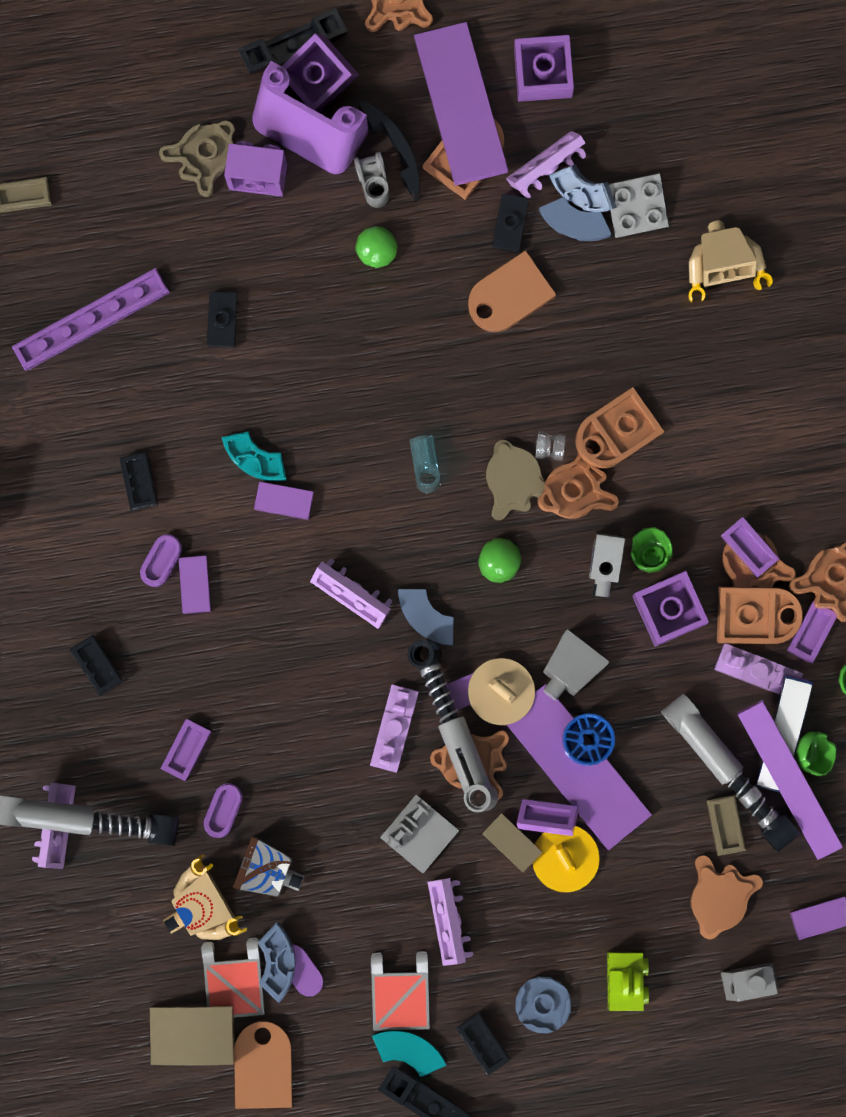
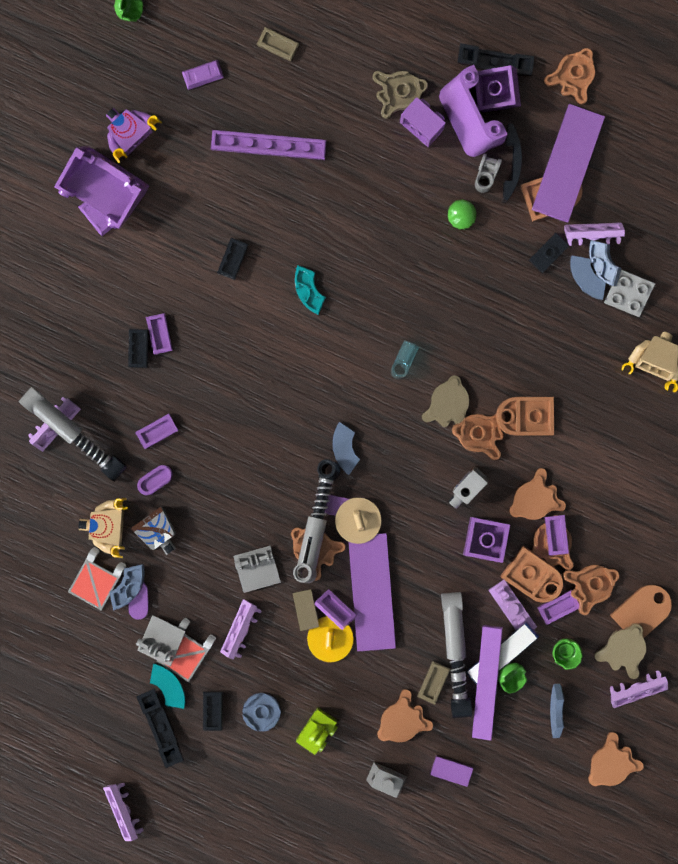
camera: 30 degrees right, 5 degrees up
(110, 630) = (159, 333): none -> medium lavender tile
(161, 560) = (215, 313): medium lavender tile -> none
(192, 1035) = (52, 595): dark tan slope -> none
(194, 584) = (225, 340): medium lavender tile -> none
(222, 320) = (344, 196): black plate -> none
(263, 1070) = (79, 640): nougat tile -> none
(284, 500) = (308, 326): medium lavender tile -> none
(351, 594) = (310, 406): lavender plate -> none
(362, 1000) = (161, 640): none -> light grey hinge
(394, 728) = (283, 499): lavender plate -> none
(499, 560) = (408, 444): bright green hair -> none
(511, 293) = (521, 294): nougat tile -> none
(543, 68) = (630, 175): medium lavender brick -> none
(544, 443) = (478, 397): clear wheel -> none
(572, 666) = (408, 533): light grey torso -> none
(602, 739) = (384, 591): blue wheel -> none
(651, 550) = (499, 498): bright green hair -> none
(695, 522) = (535, 499): none -> nougat tile

